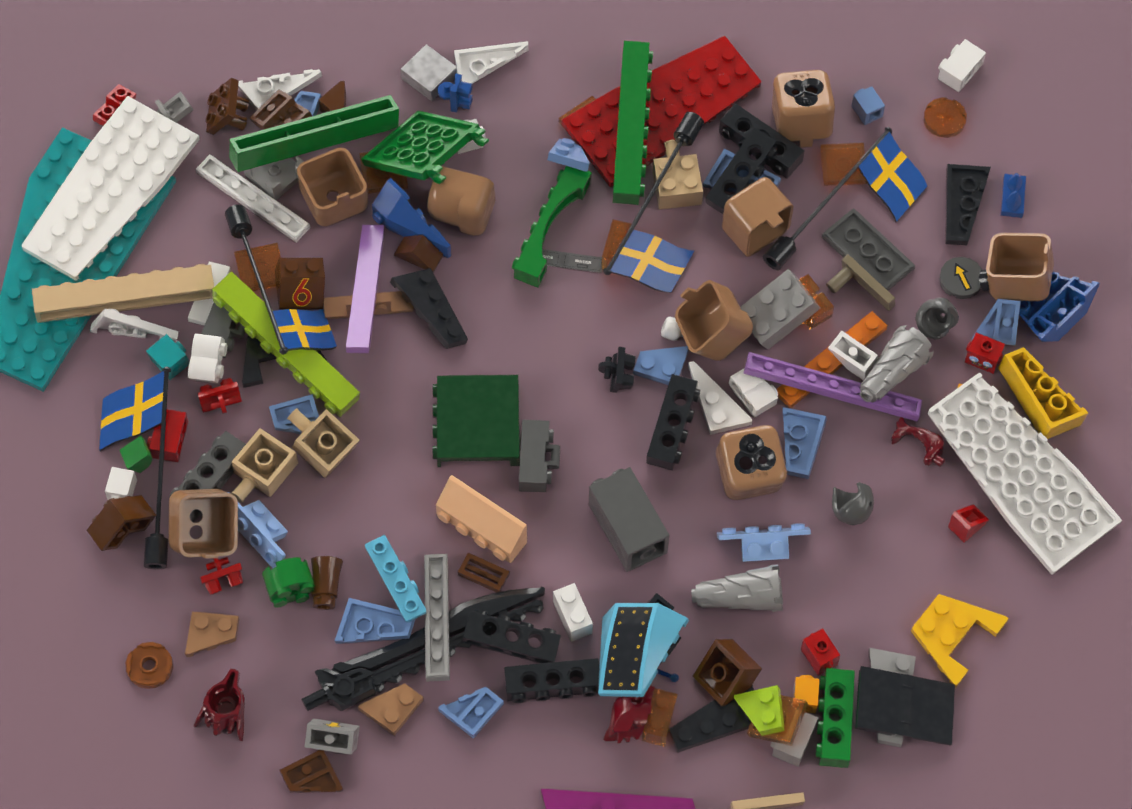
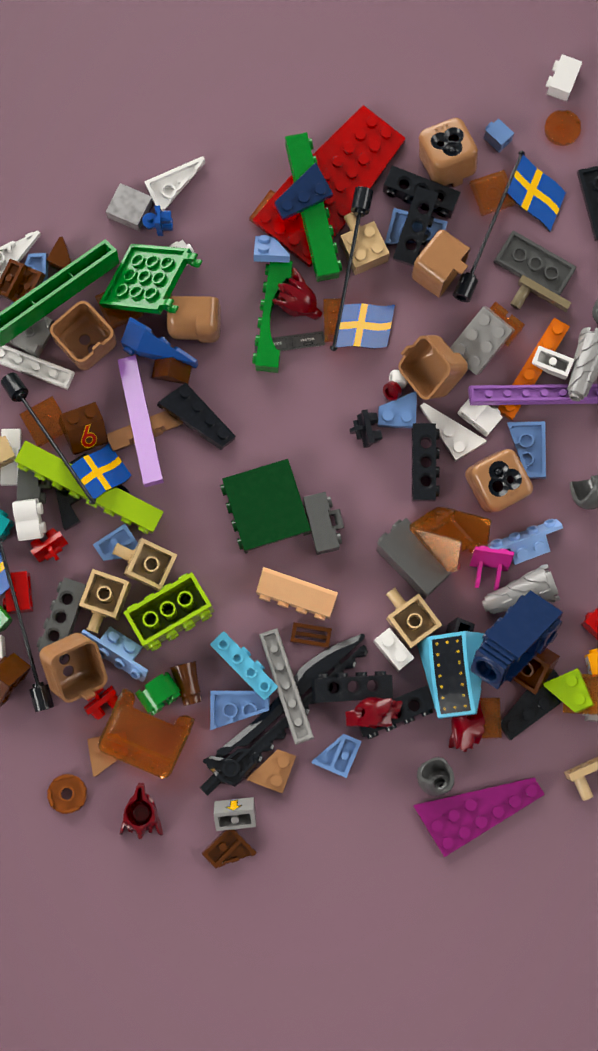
camera: 15 degrees left, 15 degrees up
(253, 626) = (142, 738): none -> clear orange windscreen
(330, 496) = (169, 612): none -> lime brick
(526, 666) = (377, 713): none -> dark red piece
(576, 762) = (435, 771): none -> dark grey piece
(584, 211) = (297, 298): none -> dark red piece
(603, 583) = (411, 619): none -> tan brick
(625, 103) = (304, 193): none -> dark blue wing
(661, 338) = (392, 390): none -> dark red tile
(679, 504) = (449, 533): none -> clear orange windscreen
(713, 626) = (516, 639): none -> dark blue piece
(716, 544) = (491, 558): none -> dark pink plate

